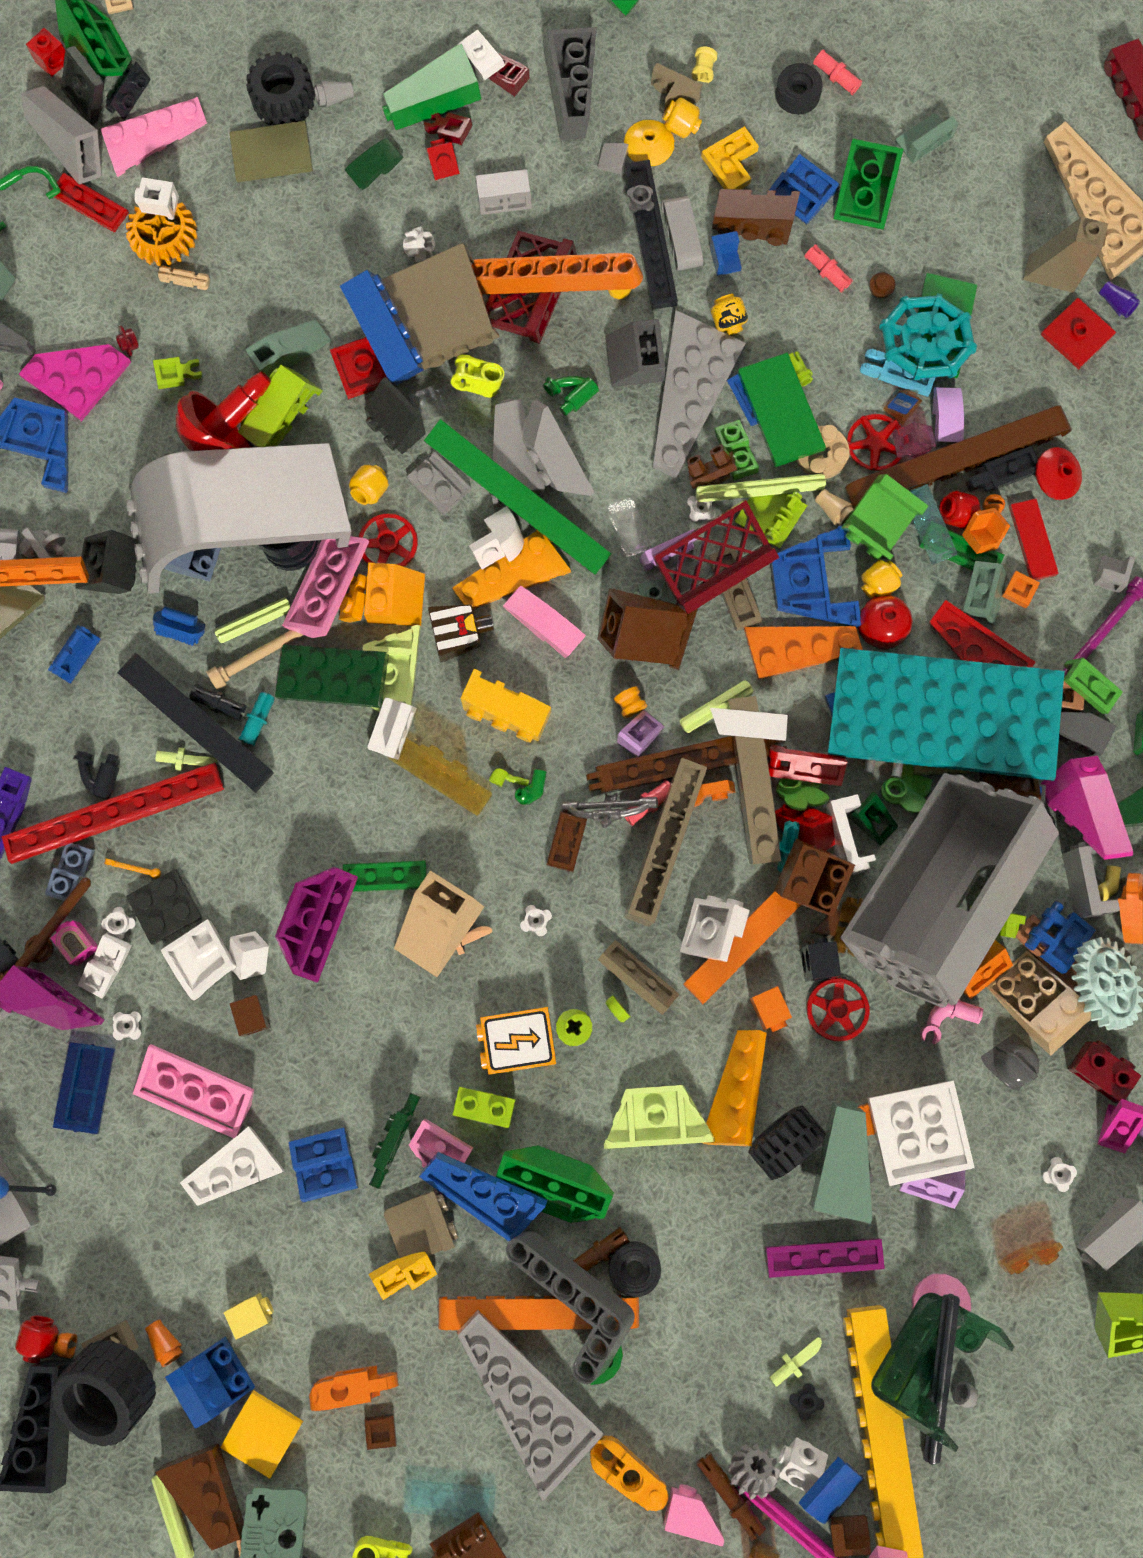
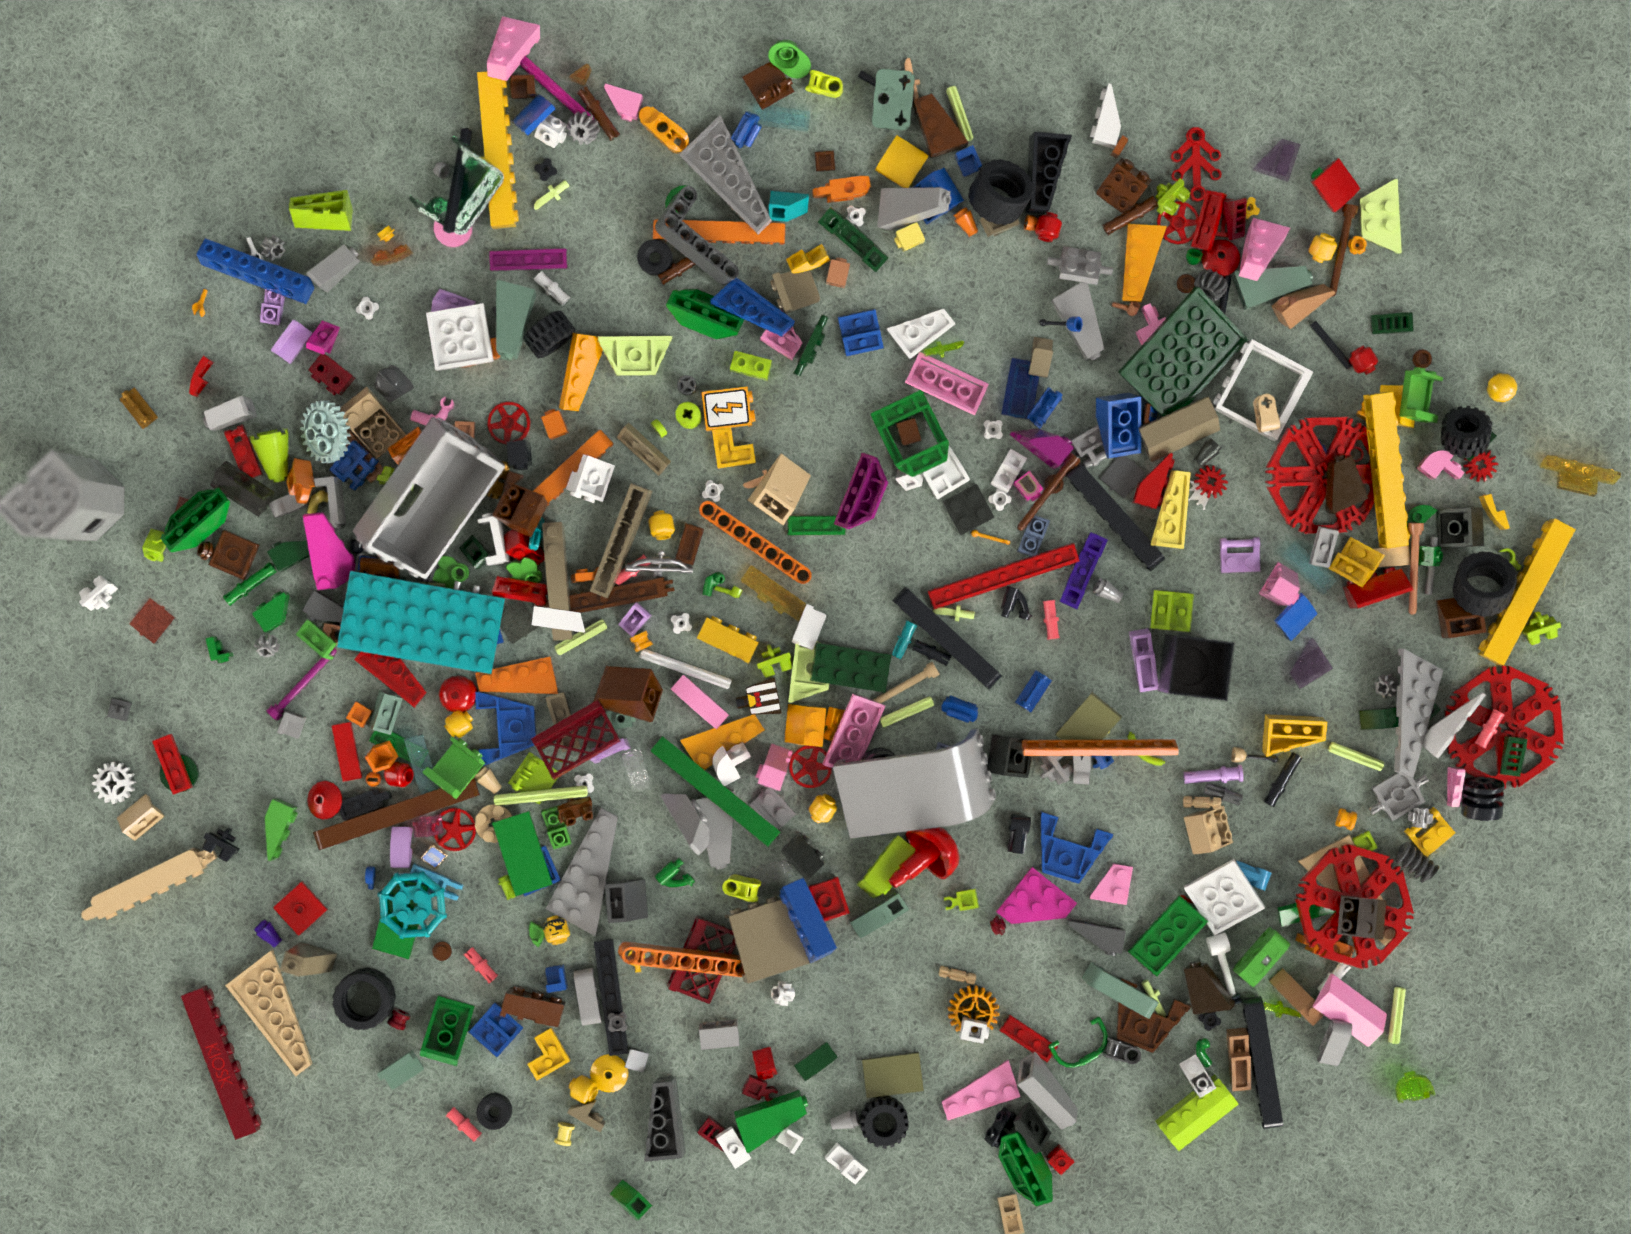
camera: 175 degrees left, 10 degrees up
(46, 753) = (1051, 619): none -> coral pin
(50, 1057) = (1044, 407): none -> blue hinge
(51, 1136) = (1041, 357): none -> dark tan slope
(97, 465) = (1018, 833): none -> black piece
(158, 1441) = (968, 161): none -> blue panel
(203, 1143) = (940, 349): none -> clear neon green piece
(243, 1366) = (909, 205): none -> light grey slope
(259, 1048) = (900, 411): none -> green wedge
(329, 41) = (846, 1163): none -> white slope
(333, 1309) = (853, 238): none -> dark green slope
(339, 1340) = (859, 212): none -> white plate
(356, 1255) = (838, 272): none -> nougat brick
(400, 65) = (790, 1138): none -> white panel
(435, 1358) = (787, 205): none -> teal slope
(437, 527) = (775, 767): none -> bright pink wedge
(450, 676) = (766, 666): none -> lime hips
(464, 835) = (749, 534): none -> orange beam
(500, 1477) = (746, 130): none -> blue piece
(514, 973) = (727, 454): none -> yellow plate
(565, 668) = (685, 668): none -> white axle
(578, 1074) = (687, 382): none -> dark grey wheel
(581, 734) = (676, 621): none -> white plate
(608, 867) = (661, 525): none -> yellow head
(756, 312) = (536, 933): none -> bright green tile
(786, 1215) = (551, 288): none -> white pin
(900, 1000) = (467, 427): none -> nougat plate
(933, 196) = (398, 1019): none -> dark red wheel
(987, 376) = (370, 874): none -> blue piece
(992, 190) = (347, 1015): none -> black tyre
(1041, 1290) = (386, 234): none -> yellow plate
(1122, 437) = (277, 821): none -> bright green slope

